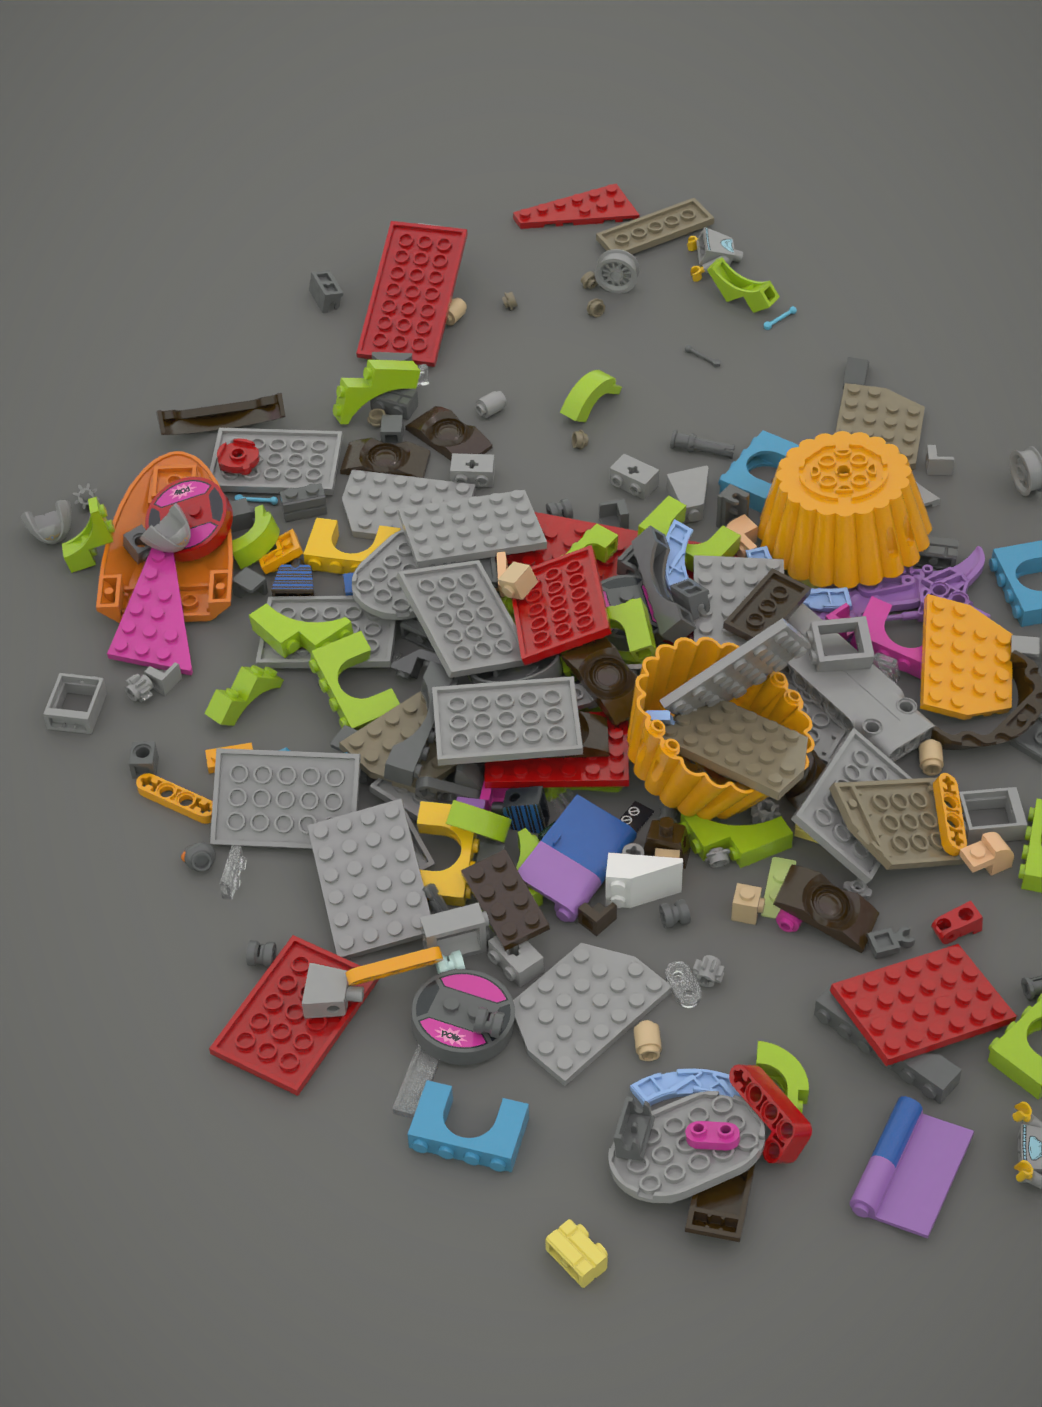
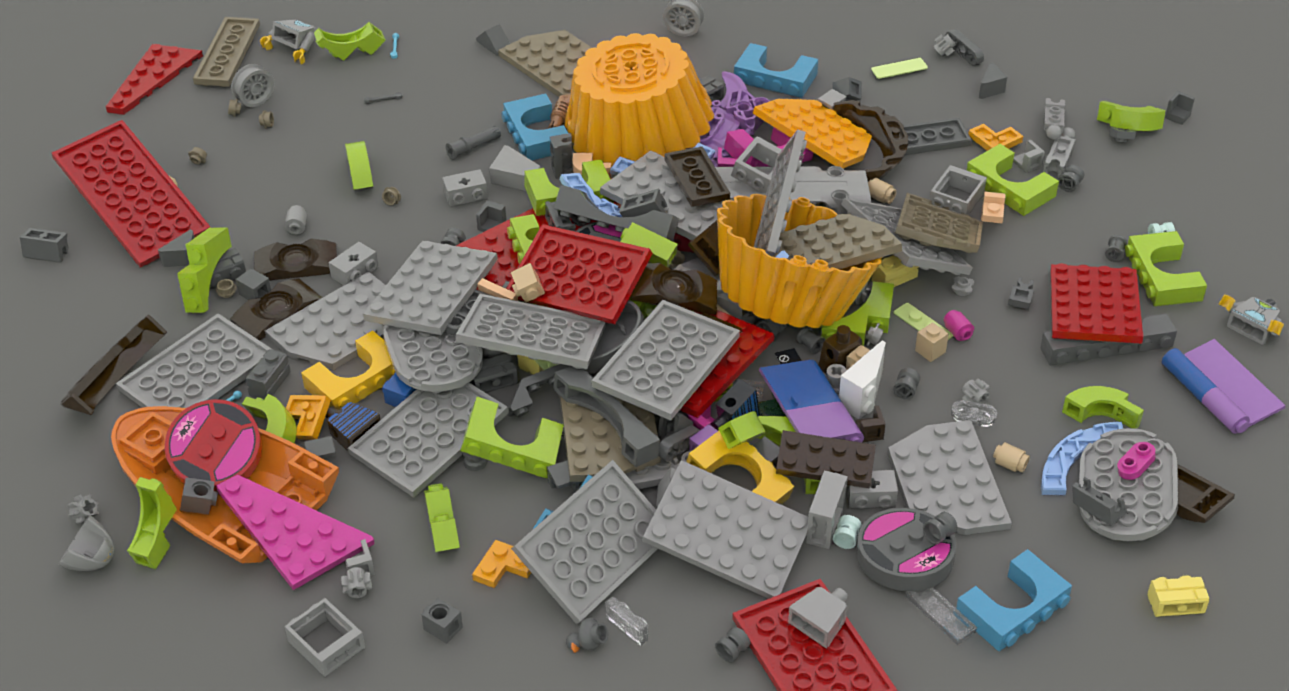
camera: 55 degrees left, 5 degrees down
(171, 533) = (223, 458): light grey hair -> none
(173, 801) = (506, 625): light orange beam -> none
(230, 462) = (181, 386): red plate -> none
(289, 635) = (416, 450): lime arch -> none
(394, 966) = (838, 555): light orange beam -> none
(435, 900) = (785, 501): dark grey axle -> none
(788, 1125) = (1129, 421): red beam -> none
(827, 907) = (970, 303): dark brown slope -> none
(951, 838) = (945, 205): light orange beam -> none
(958, 923) = (1035, 255): red leg -> none

